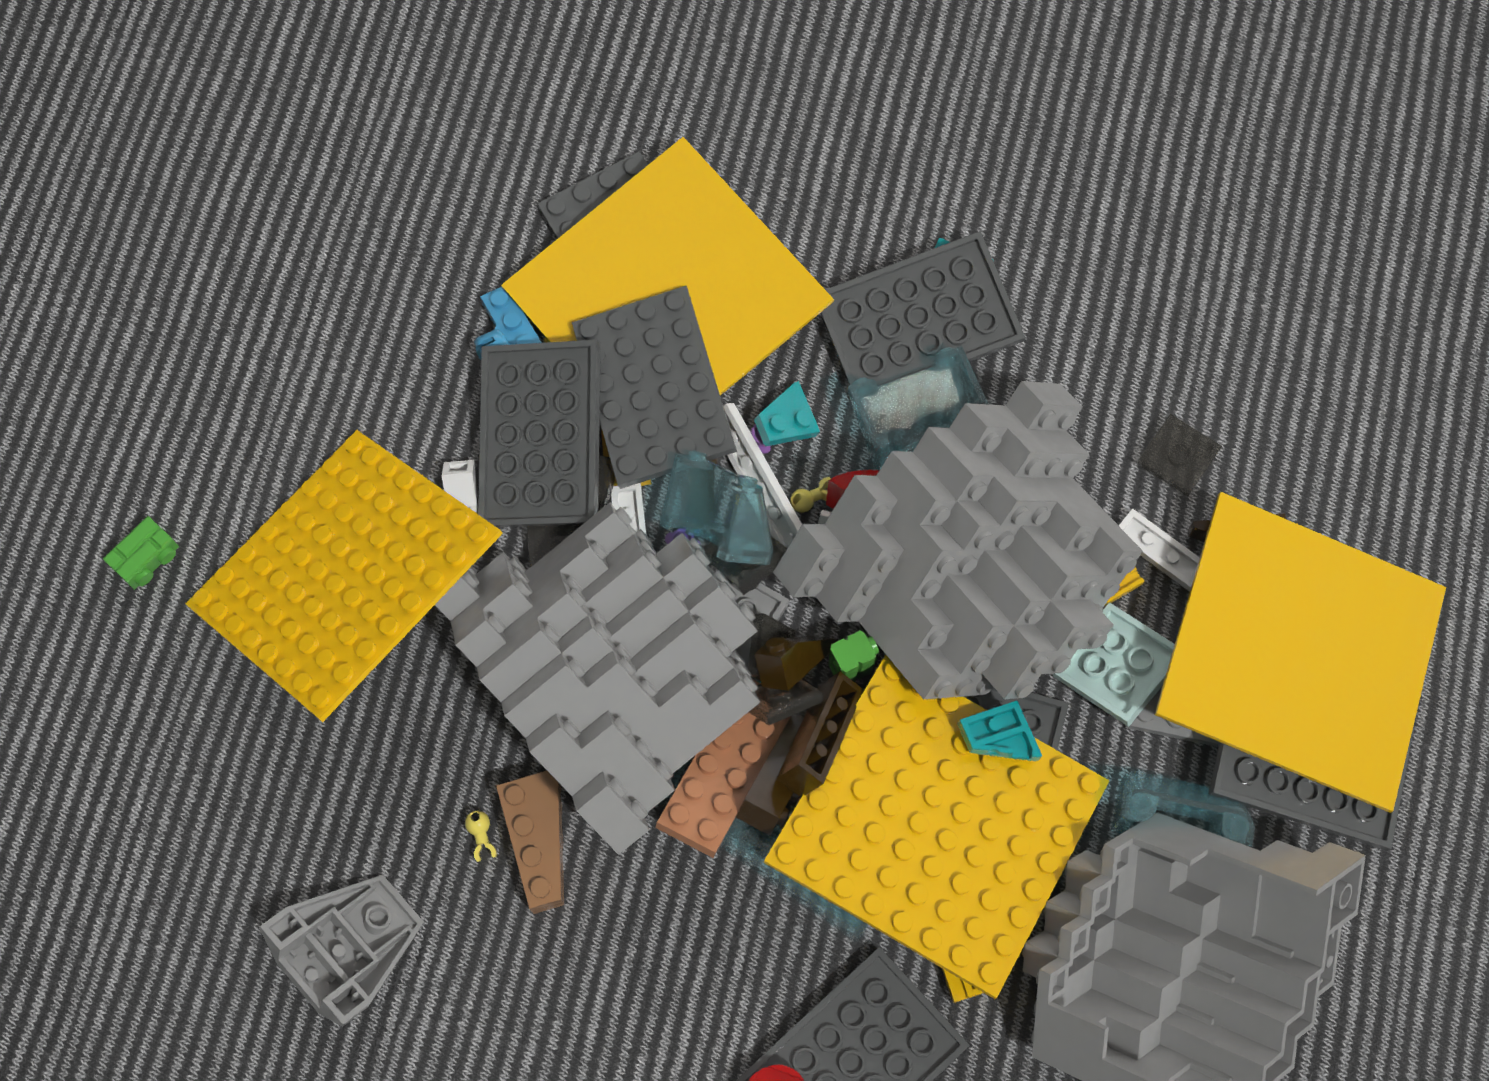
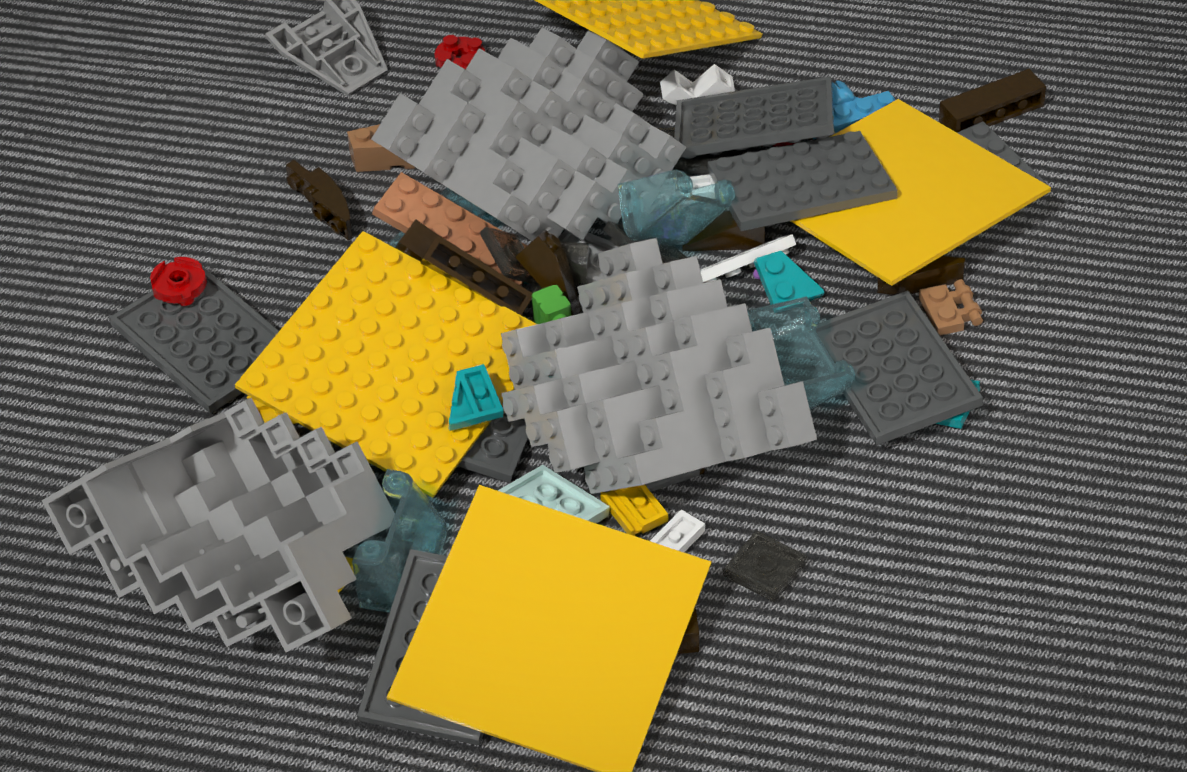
camera: 90 degrees right, 25 degrees down
(375, 800) = (457, 46): none -> red plate
(511, 191) = (993, 102): none -> dark brown brick
(635, 927) = (324, 194): none -> dark brown slope
(826, 267) = (942, 308): none -> medium nougat plate

